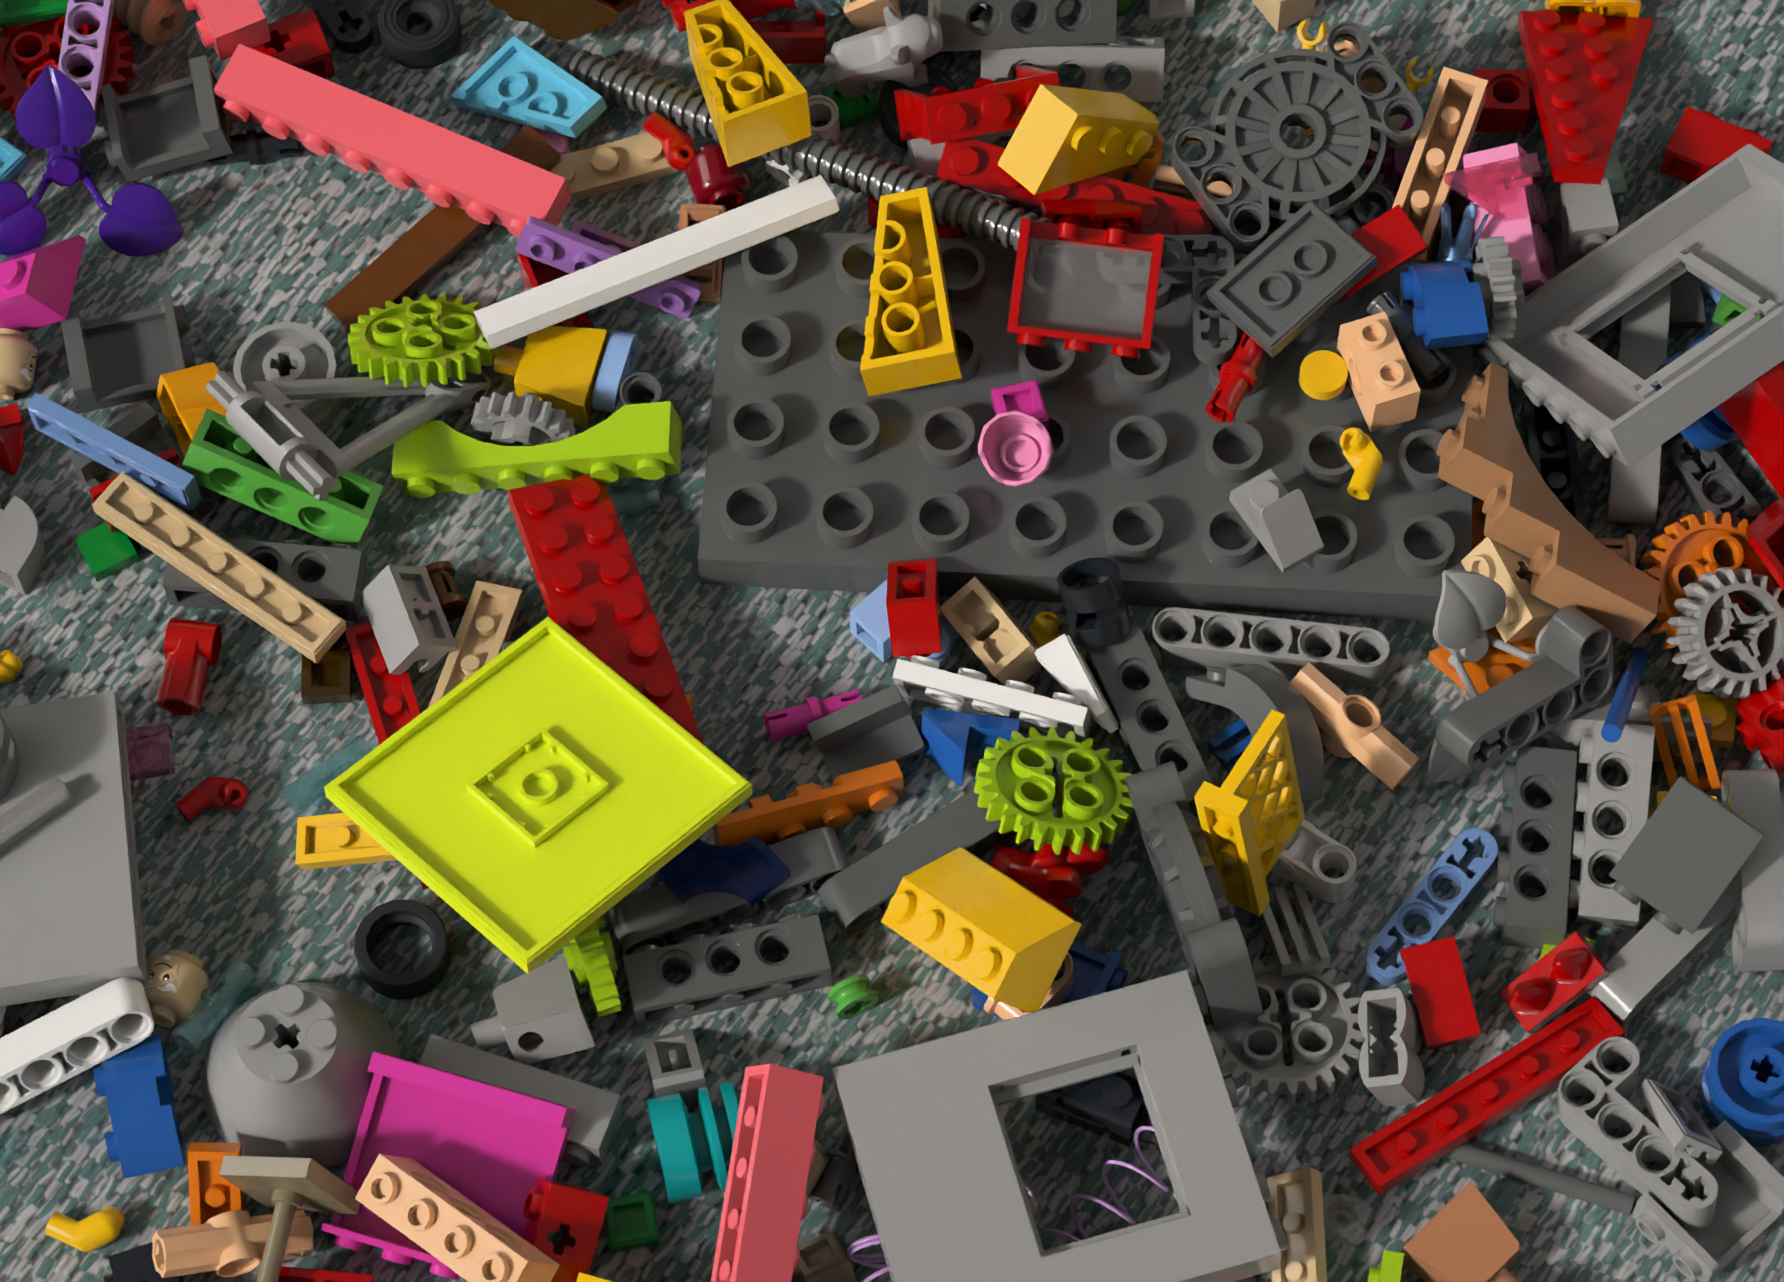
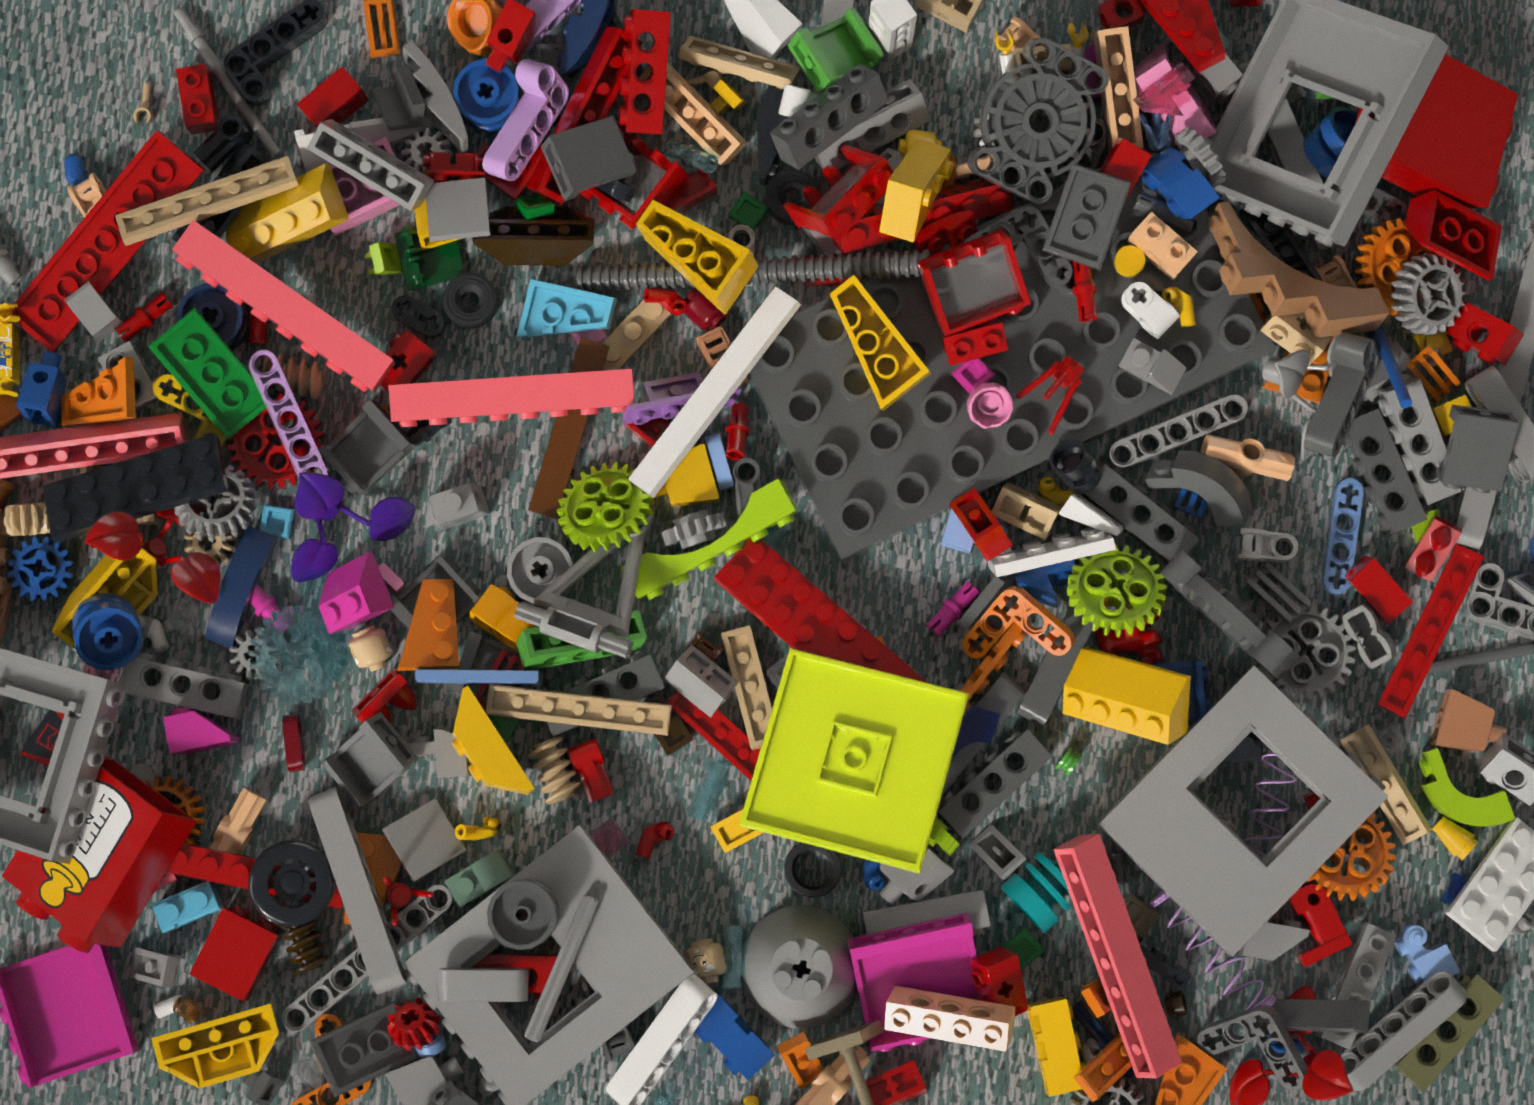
camera: 30 degrees left, 20 degrees up
(61, 543) = (486, 749): none -> yellow wedge
(87, 293) = (392, 581): none -> bright pink tile
(97, 368) = (433, 629): none -> orange wing
(135, 637) = (554, 770): none -> tan piece
(235, 248) = (457, 506): none -> light grey torso
(480, 1001) = (872, 875): none -> blue arm
(662, 343) = (737, 431): none -> red axle
(885, 53) = (768, 182): light grey animal -> none
(898, 754) = (1020, 615): none -> orange beam
(1044, 363) = (975, 343): none -> red hinge
(1145, 466) = (1065, 374): none -> red plant
(1252, 814) = (1244, 583): yellow fence -> none
(1313, 440) = (1152, 311): none -> white piece

